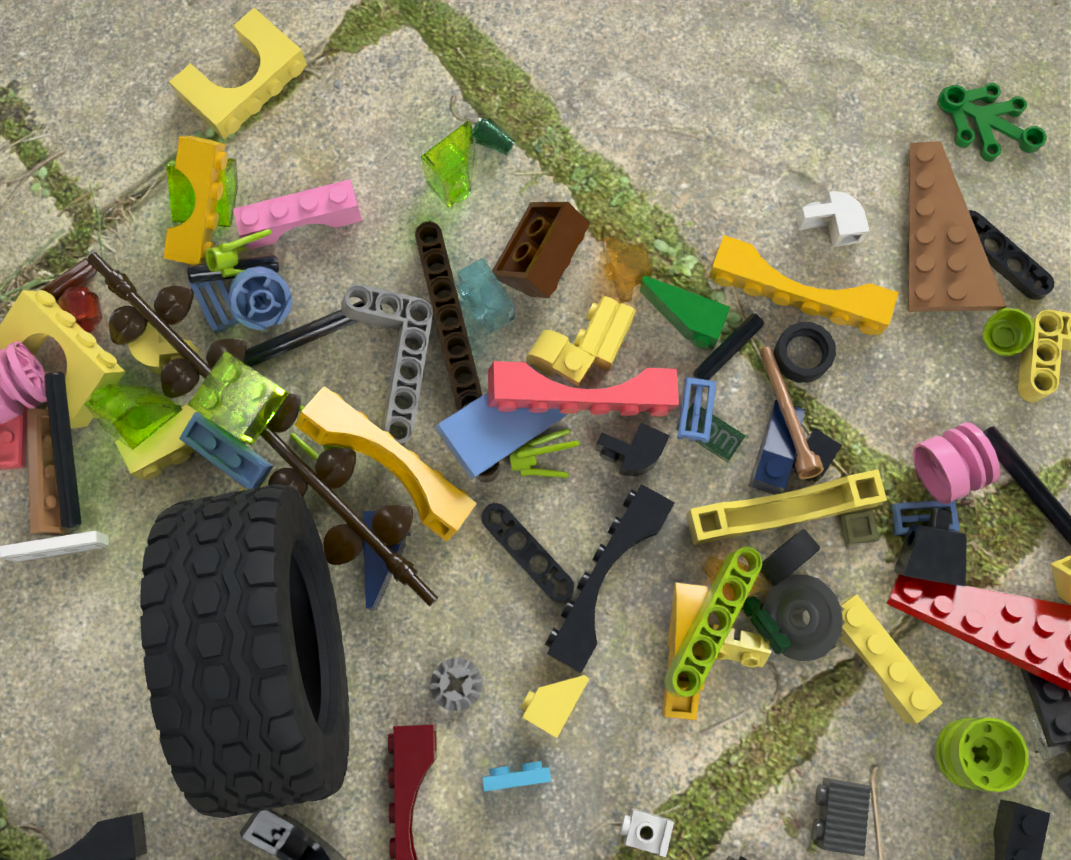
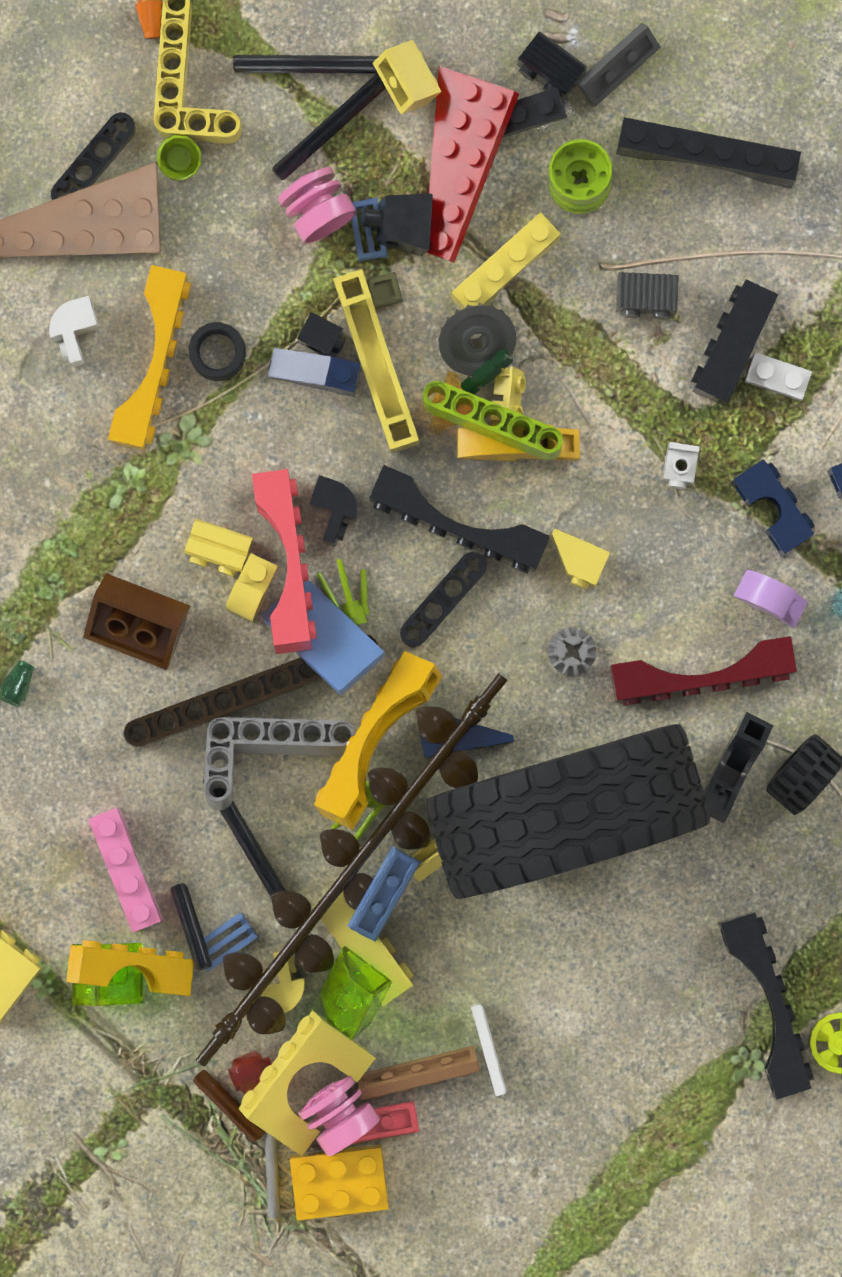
camera: 95 degrees left, 10 degrees up
(63, 449) = (396, 1055): black axle -> none
(225, 256) = (185, 931): lime plant -> none
(238, 399) = (335, 883): clear neon green brick -> none
(260, 298) = (221, 891): medium blue cylinder -> none
(450, 165) = (62, 717): clear neon green slope -> none
(486, 295) = (193, 668): clear light blue brick -> none
(501, 777) = (650, 597): medium azure plate -> none
(625, 266) = (147, 533): clear yellow brick -> none
(689, 313) = (191, 464): green slope -> none
(692, 435) = (283, 451): medium blue tile -> none
(723, 437) = (306, 436): clear green tile -> none
(729, 347) = (220, 425): black axle -> none
(789, 557) = (423, 355): black tyre -> none
(807, 463) = (334, 343): medium nougat piece -> none

